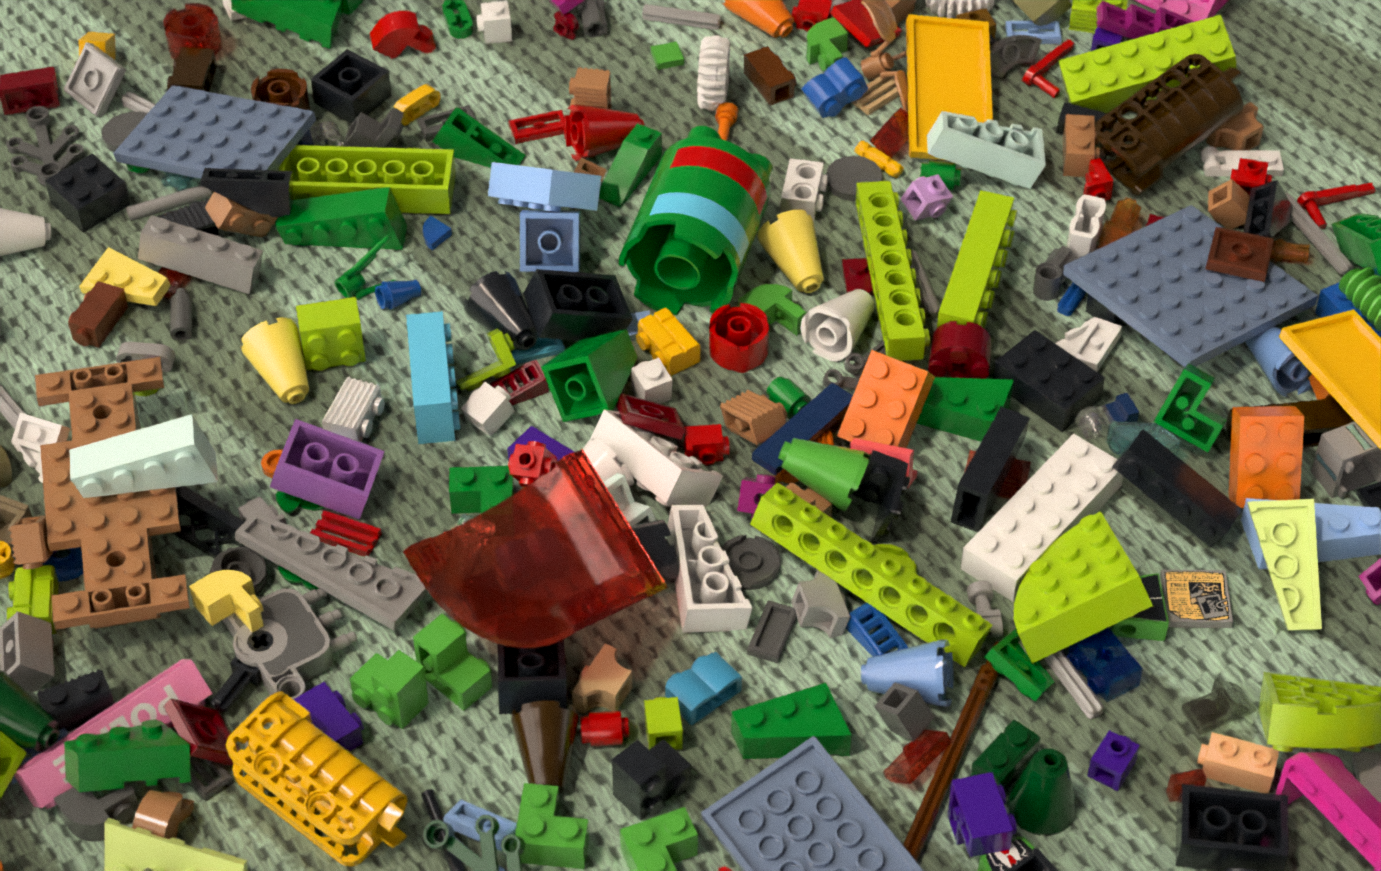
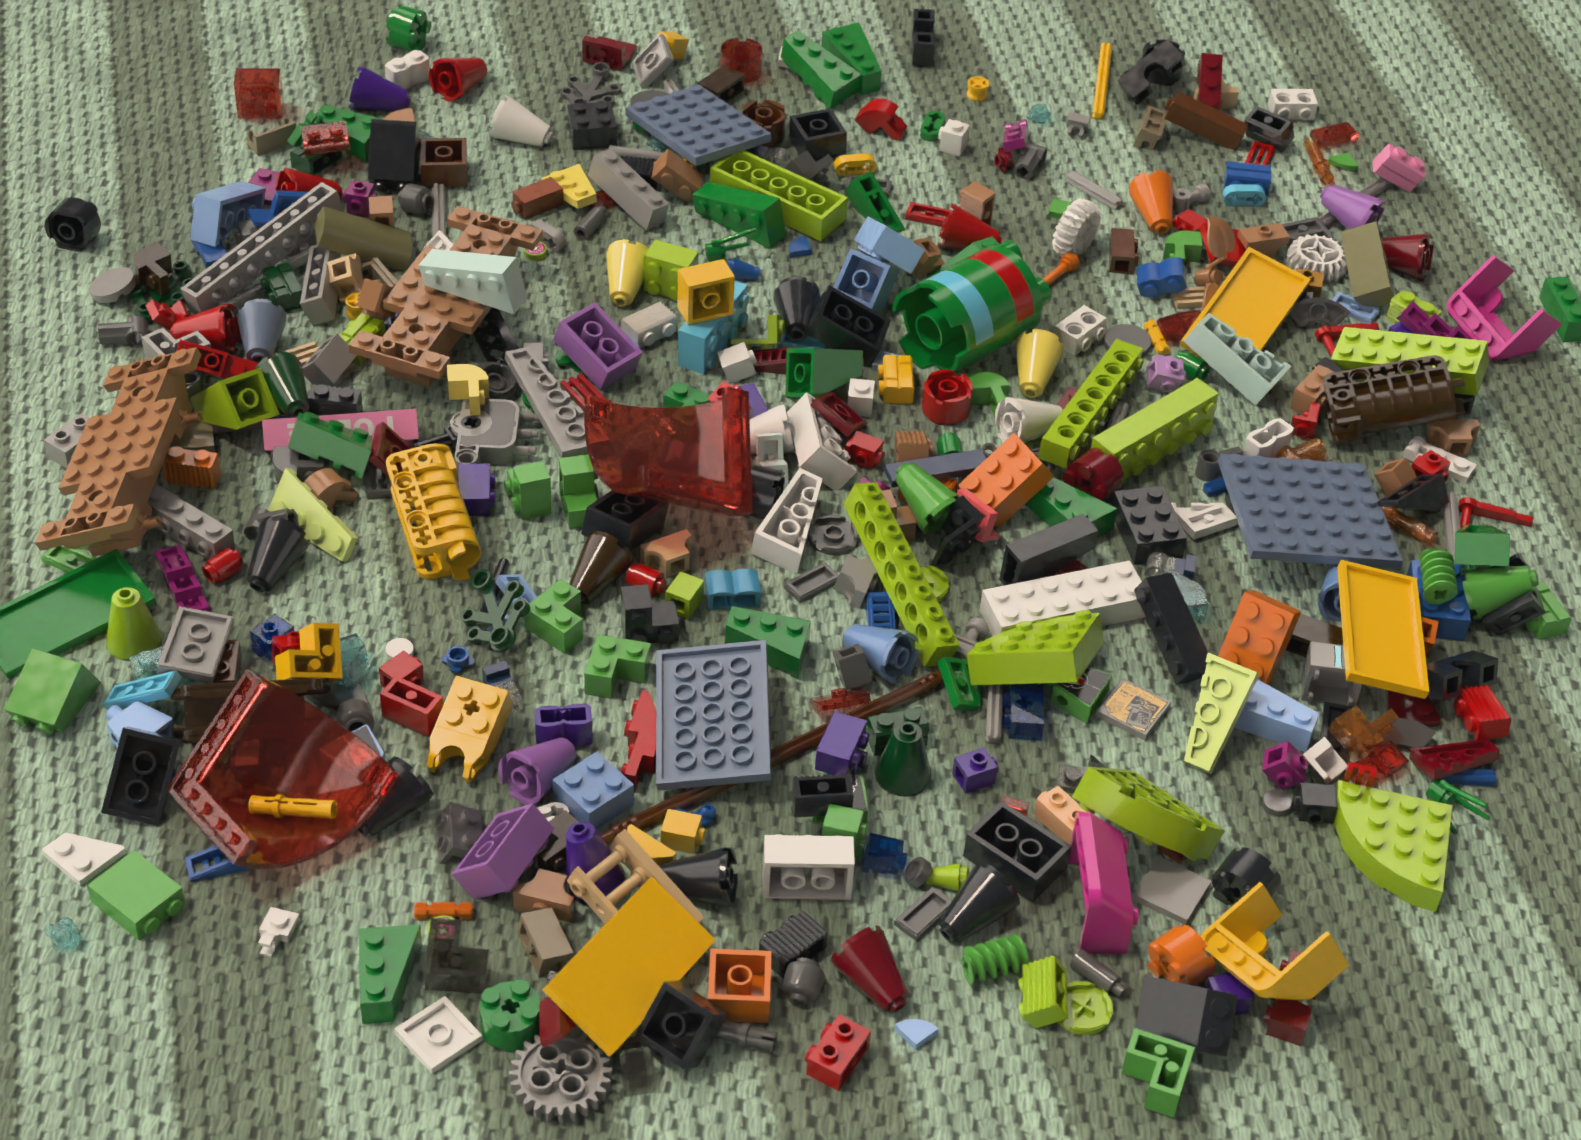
camera: 30 degrees right, 5 degrees down
(258, 190) = (691, 163): black slope -> none
(420, 346) = (705, 291): none -> yellow brick
(1183, 411) = (1229, 581): green brick -> none
(1240, 254) = (1363, 506): copper tile -> none

